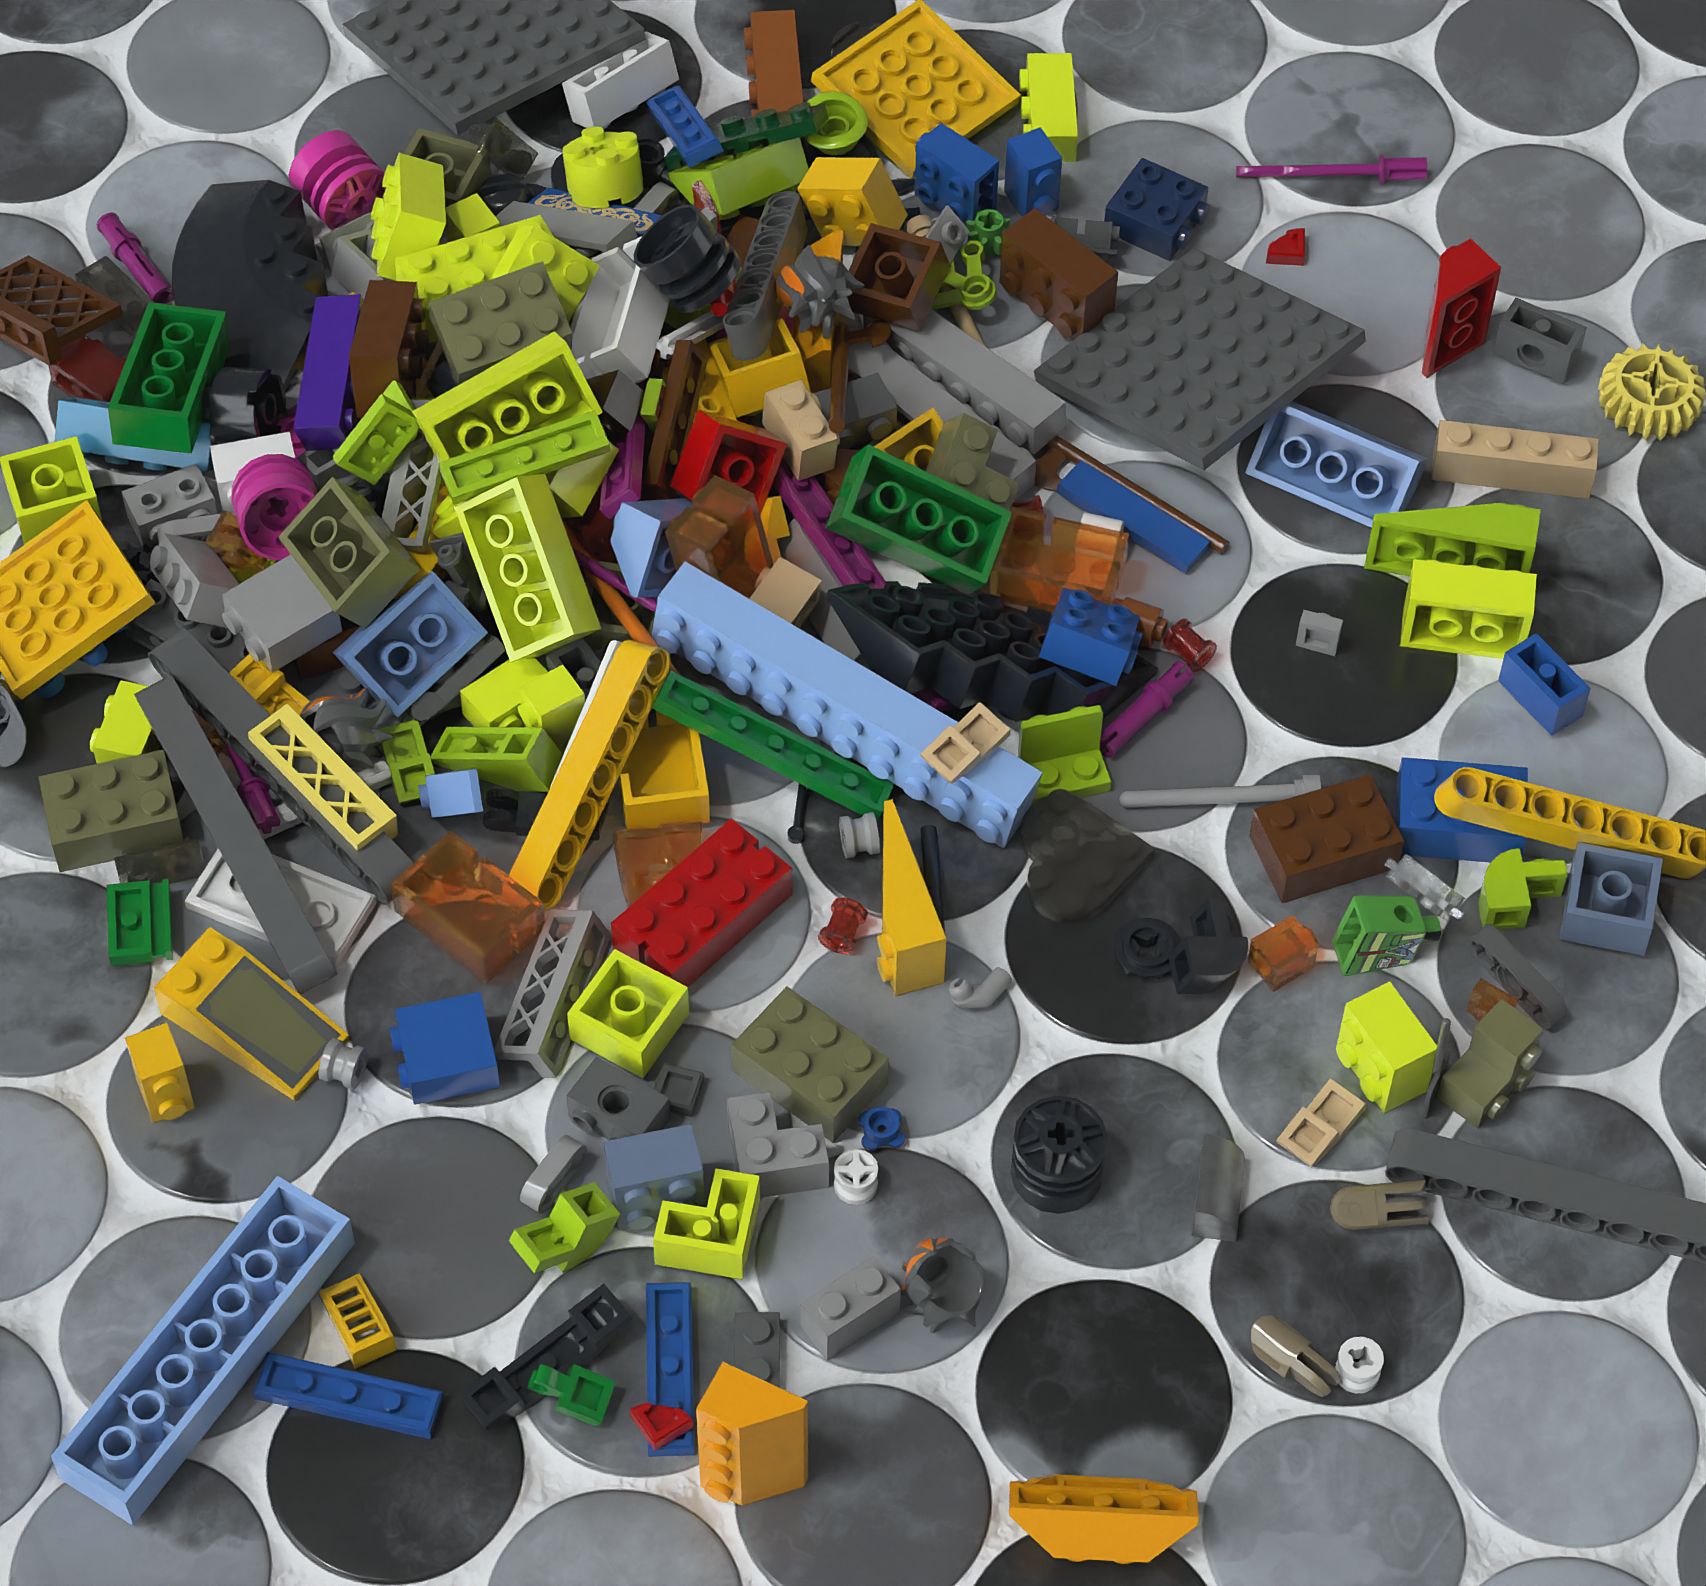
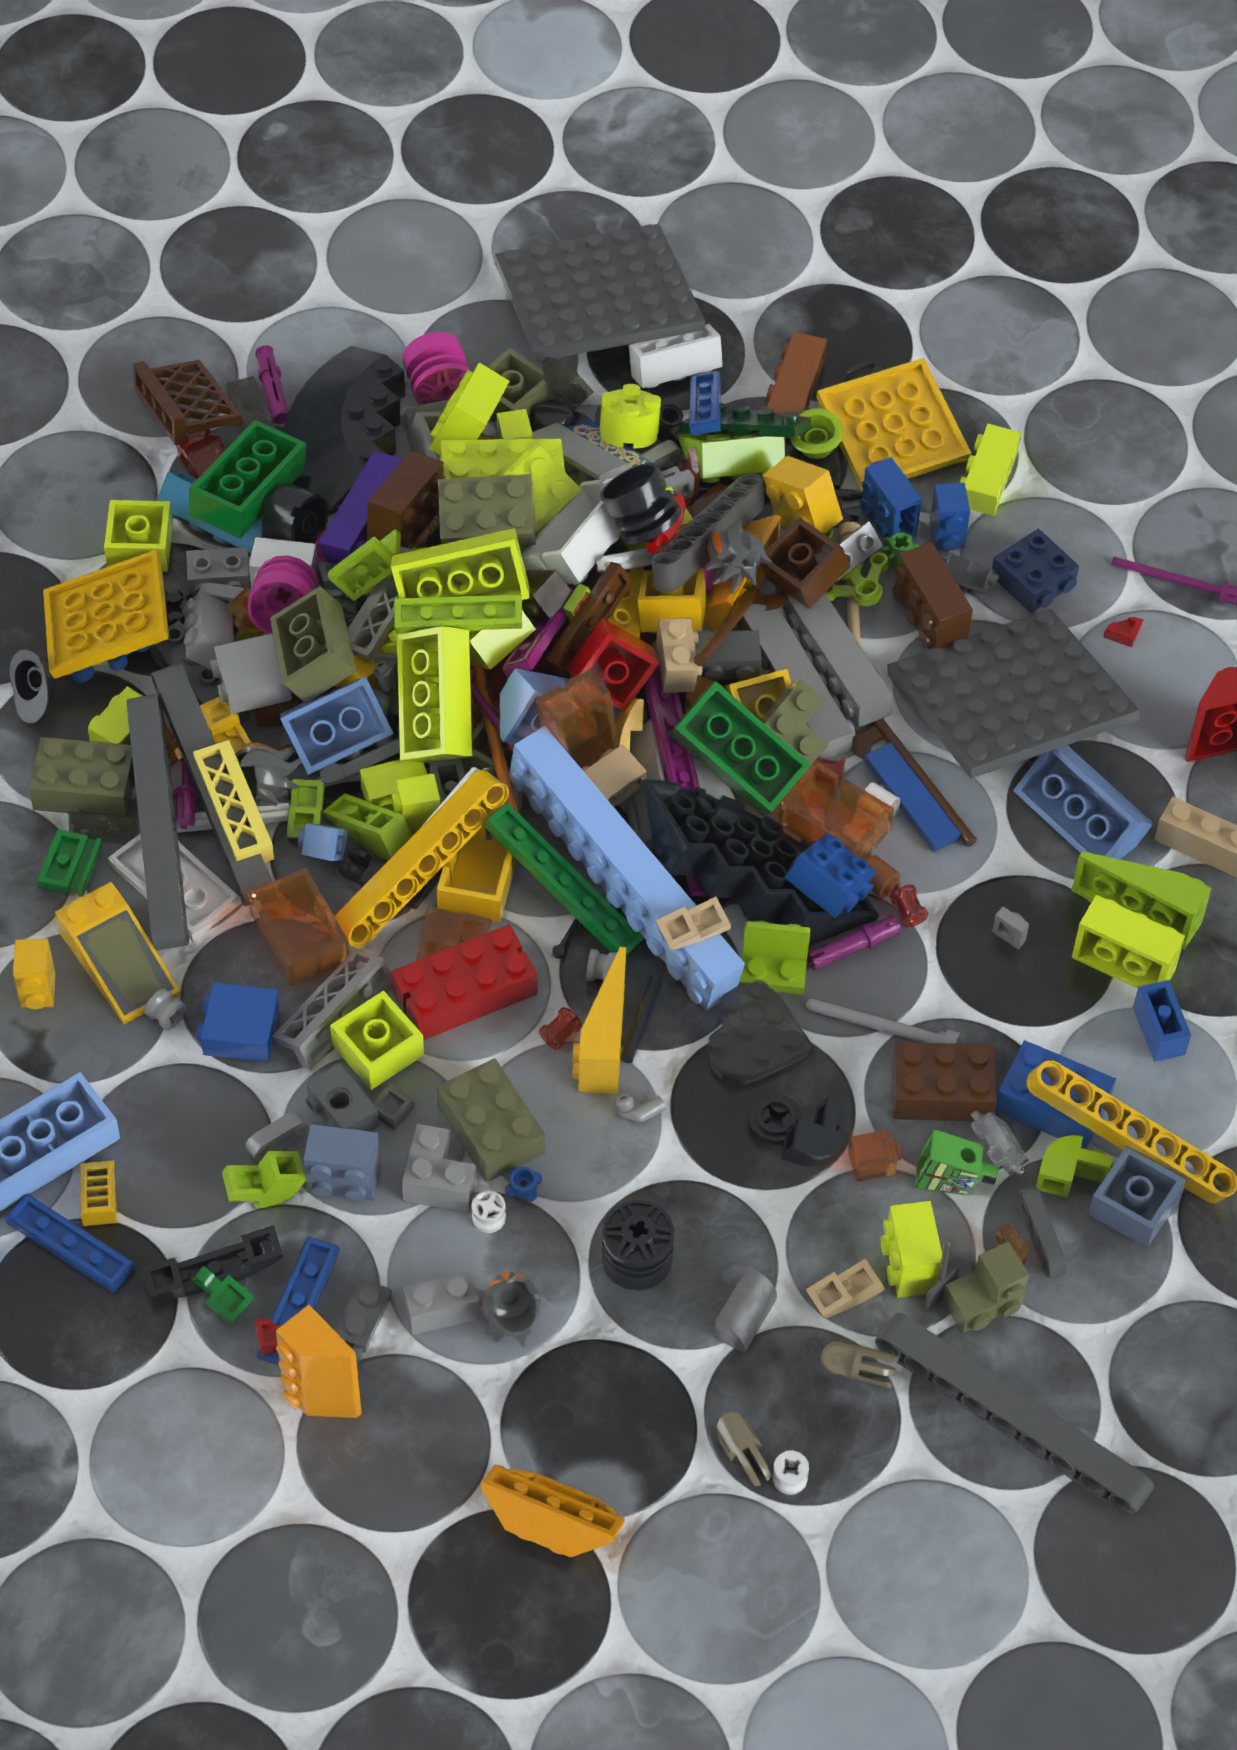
camera: 20 degrees right, 0 degrees up
(713, 1237) = (371, 1218): neon yellow brick -> none

